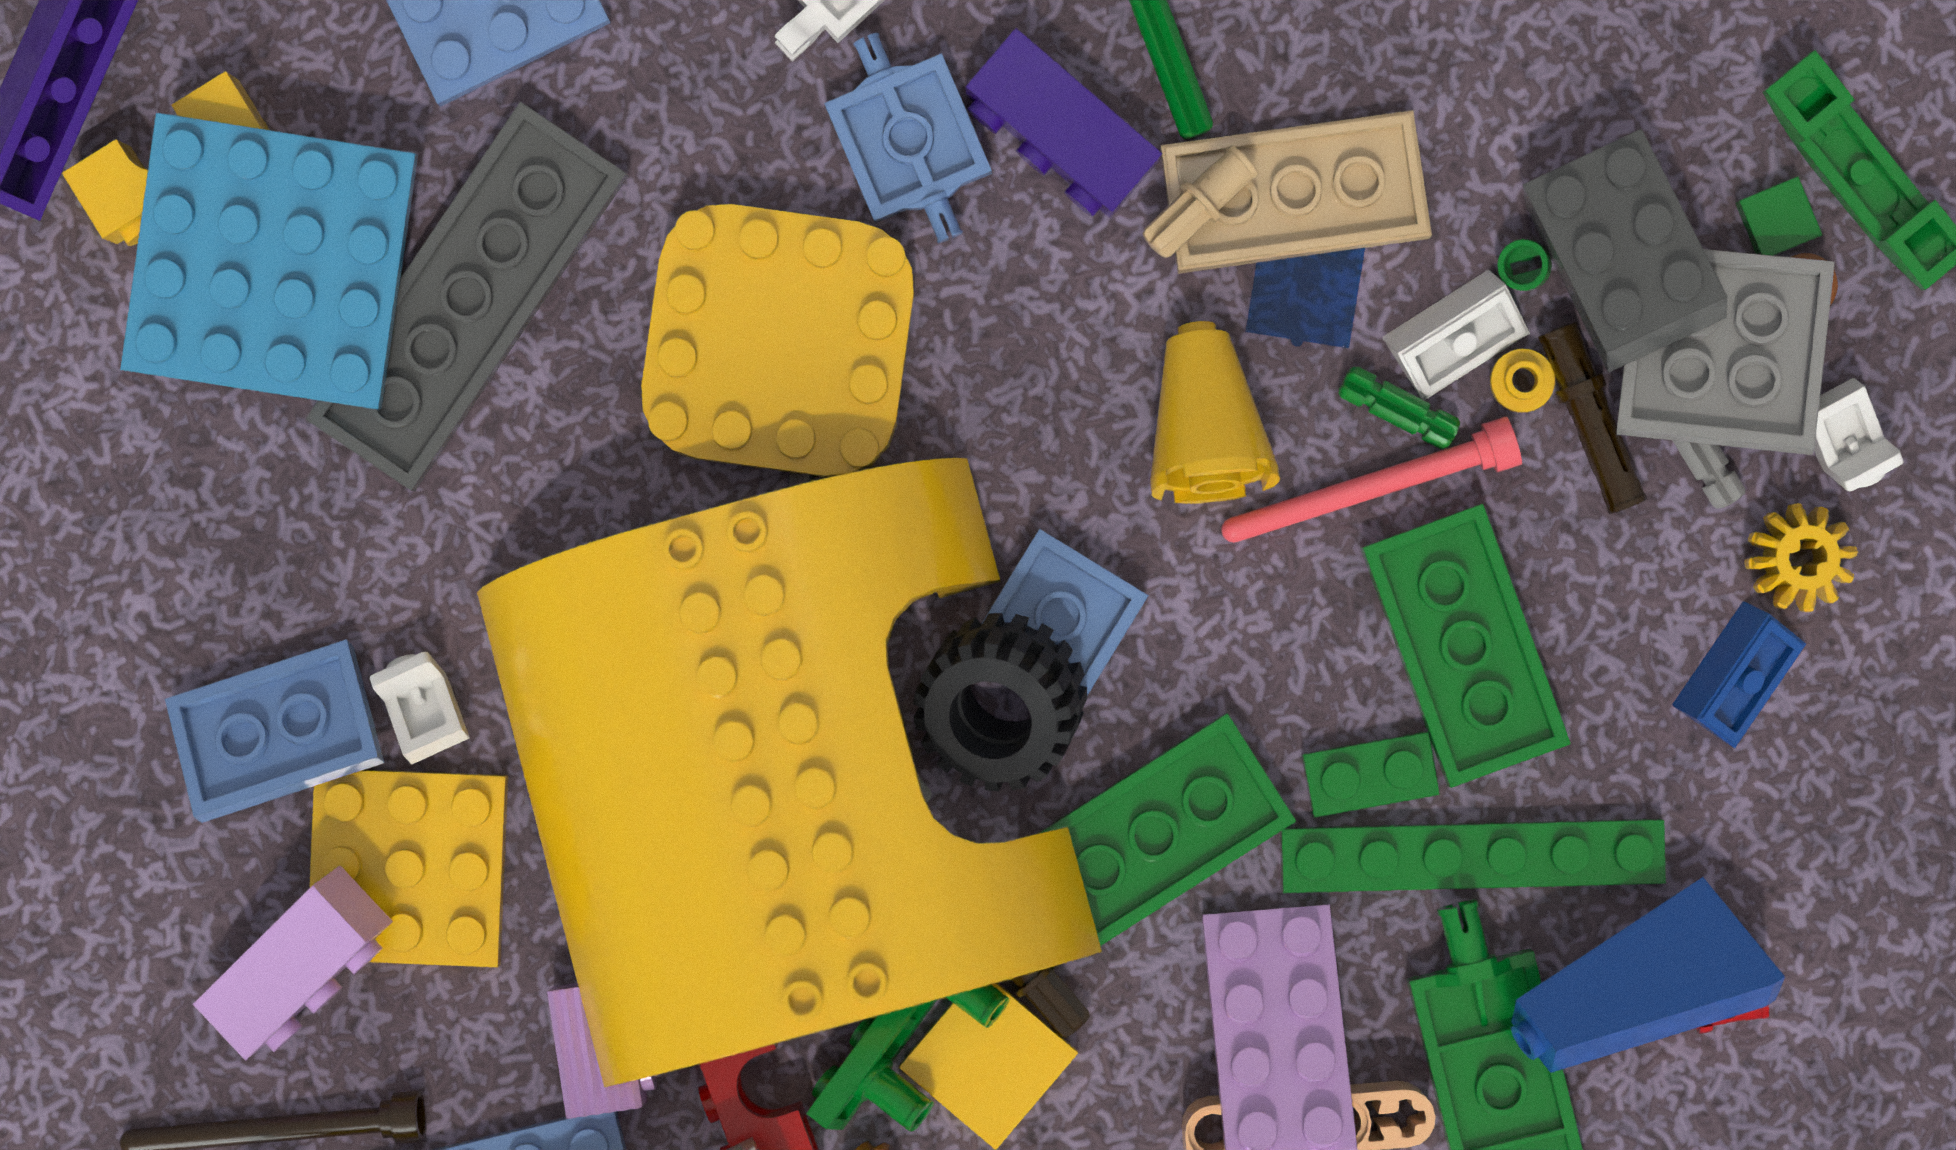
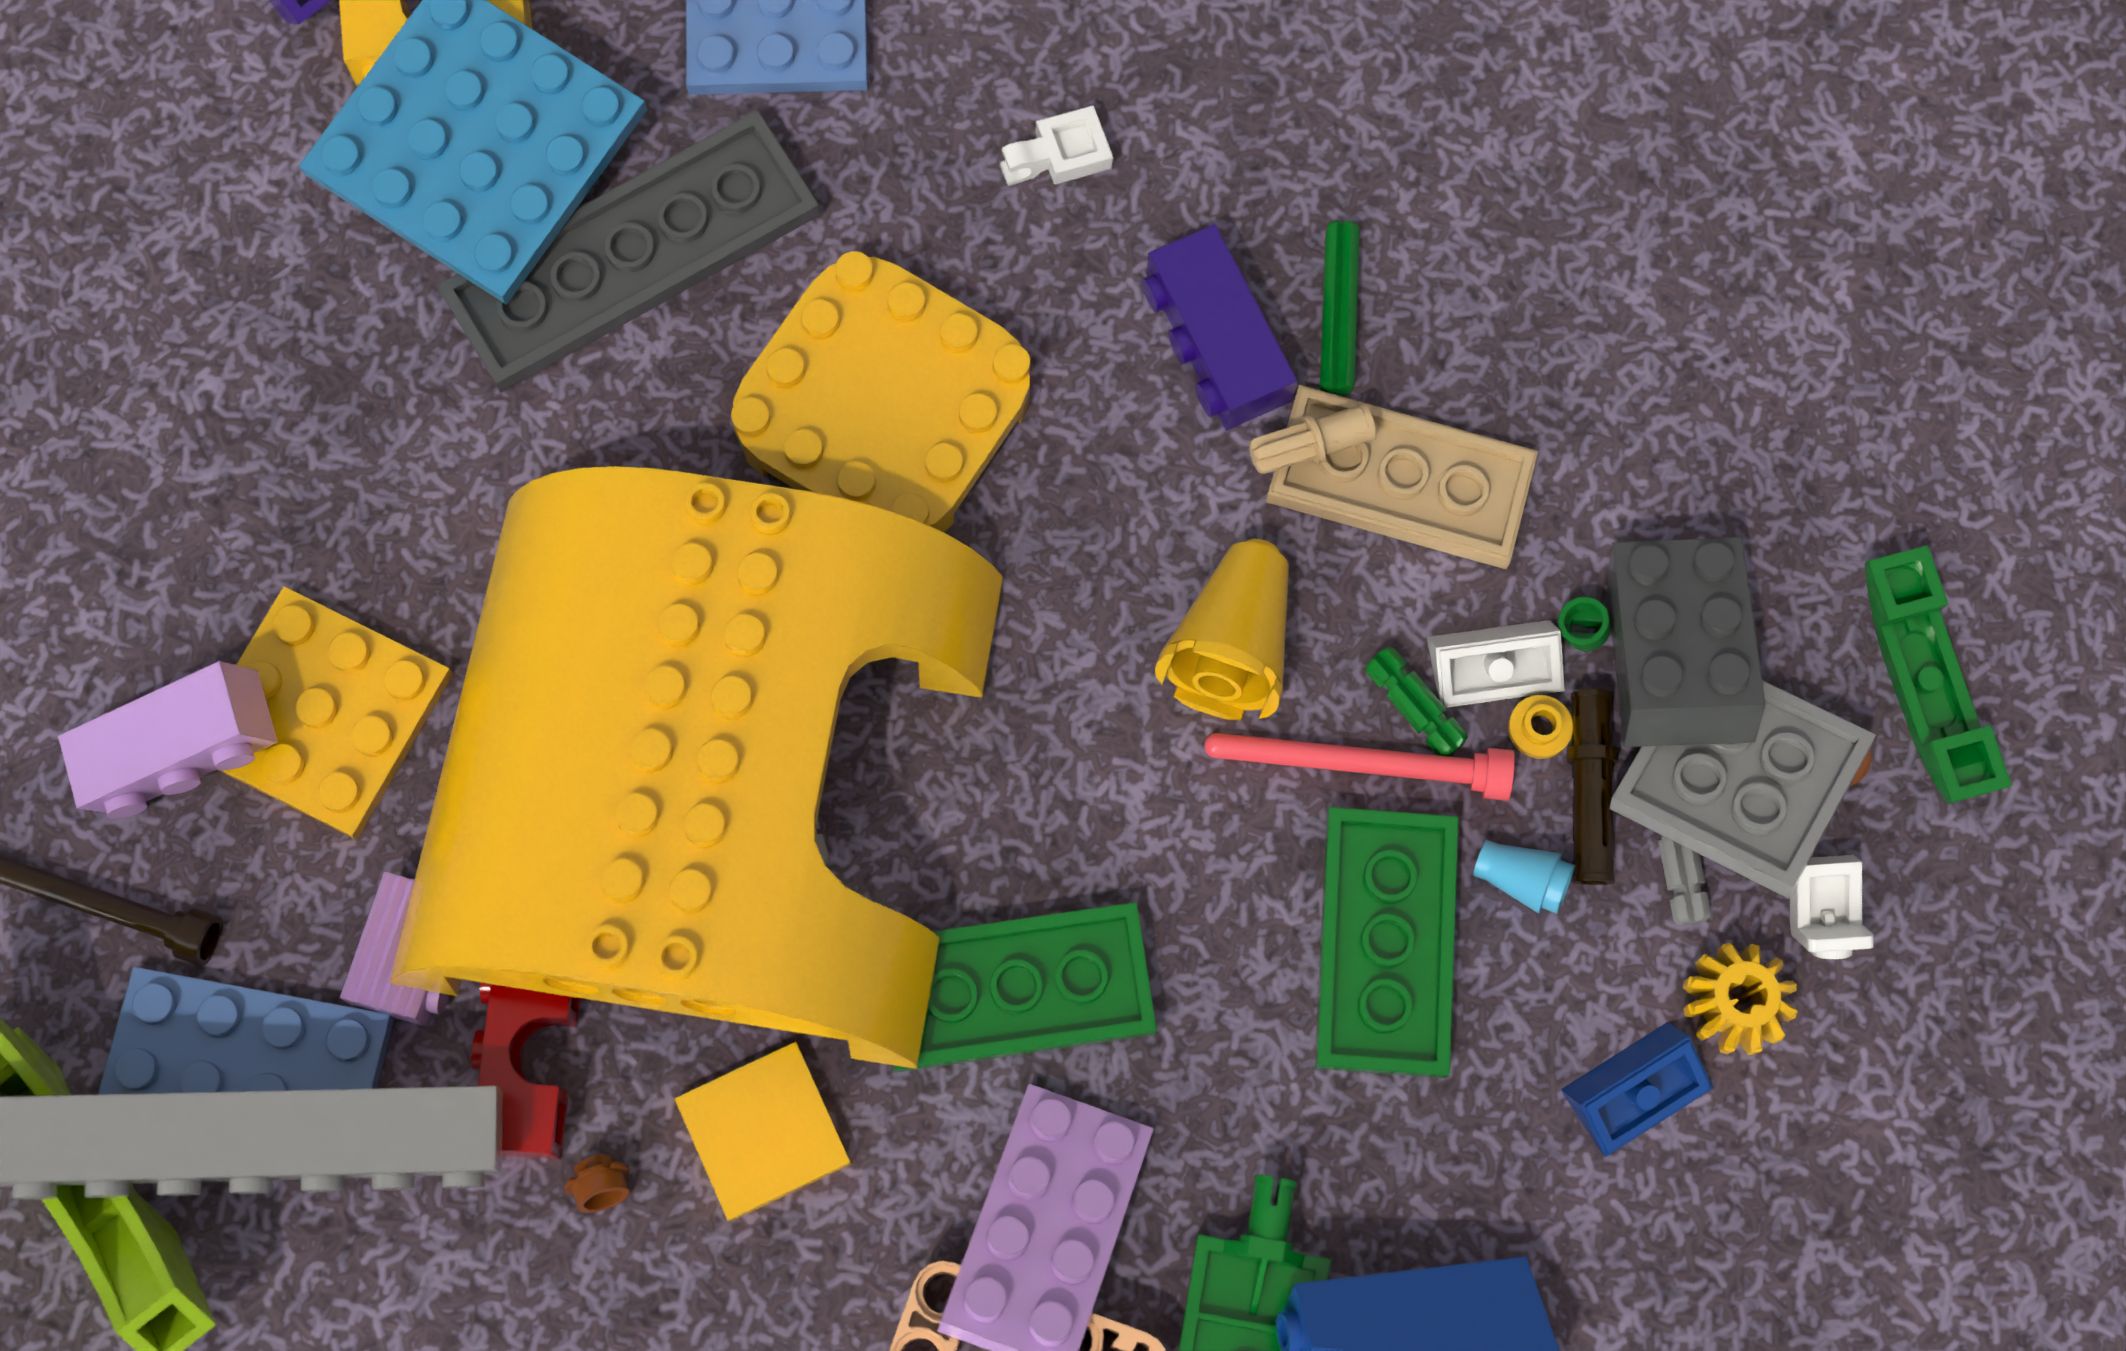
camera: 20 degrees right, 15 degrees down
(274, 731) = (264, 534): medium blue plate -> none
(420, 706) = (406, 569): white bracket -> none
(868, 1067) = (670, 1063): green plate -> none
(908, 138) = (1078, 284): medium blue plate -> none
(976, 740) = (882, 797): black tyre -> none
(1053, 1000) = (846, 1089): dark brown axle -> none
(1073, 599) = (1022, 749): medium blue plate -> none
(1307, 298) = (1373, 573): clear blue piece -> none
(1370, 774) = (1246, 1024): green plate -> none
(1473, 855) = (1312, 1146): green plate -> none
(1564, 527) = (1528, 875): none -> medium azure cone
(1778, 218) = (1838, 685): green tile -> none

